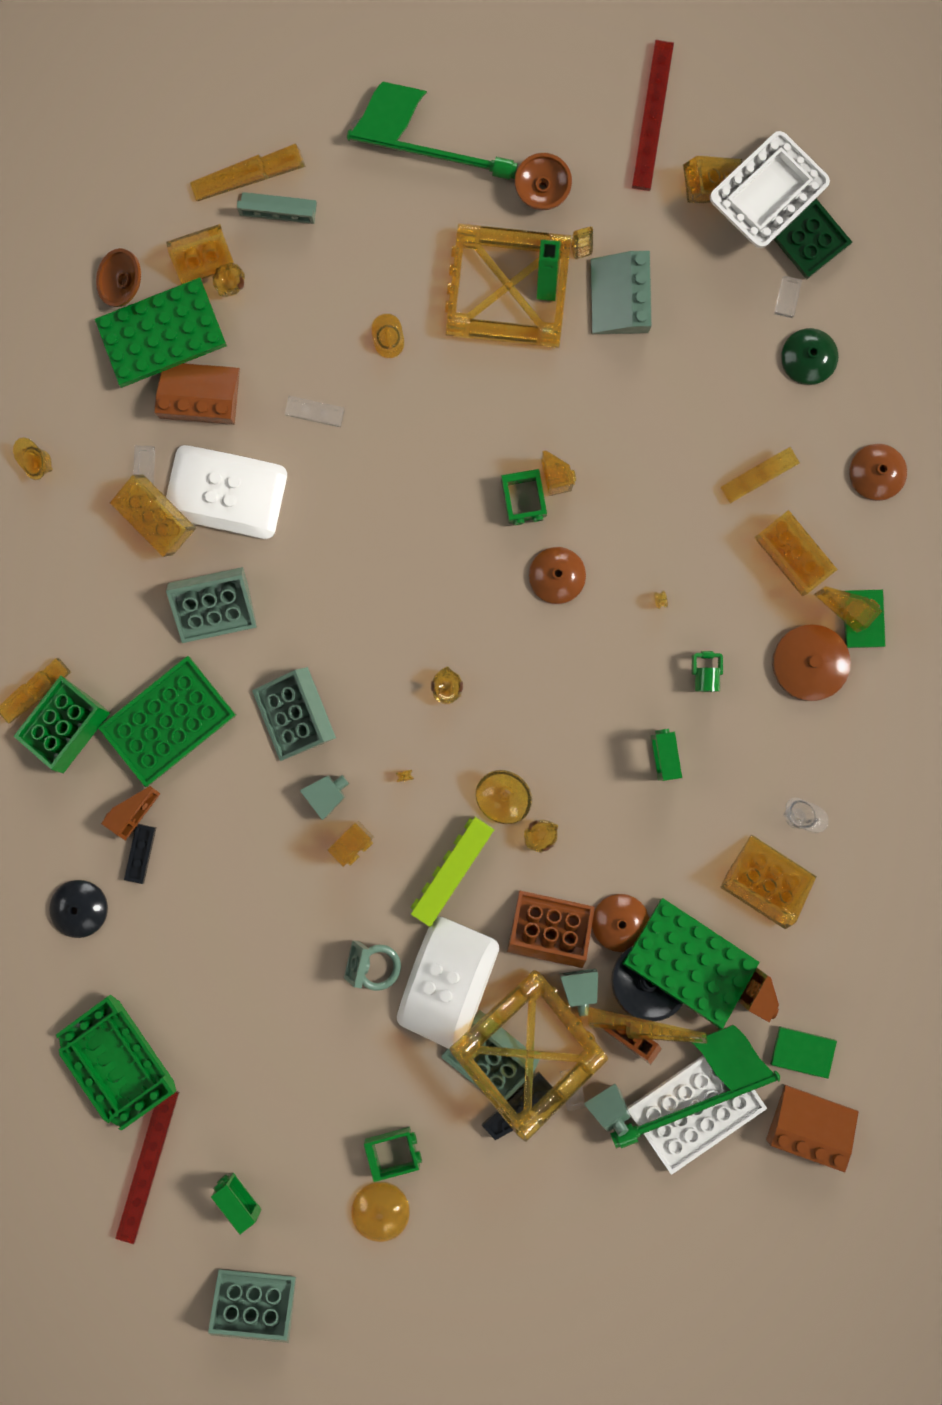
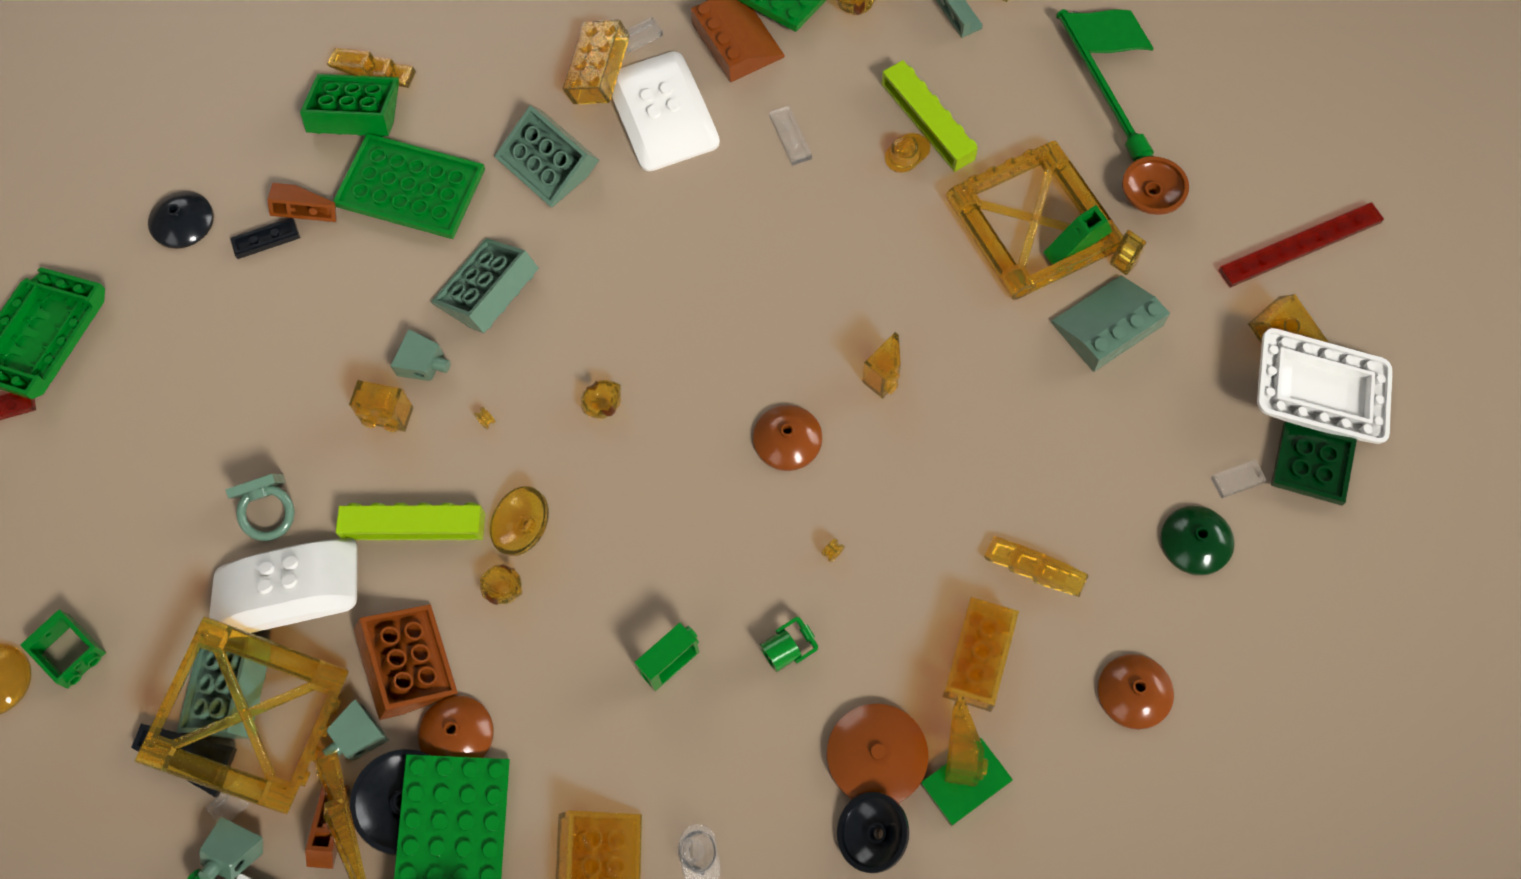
camera: 55 degrees right, 20 degrees down
(369, 298) = (929, 115): none -> lime brick
(523, 477) = (856, 339): green window -> none
(861, 709) = (860, 828): none -> black dish

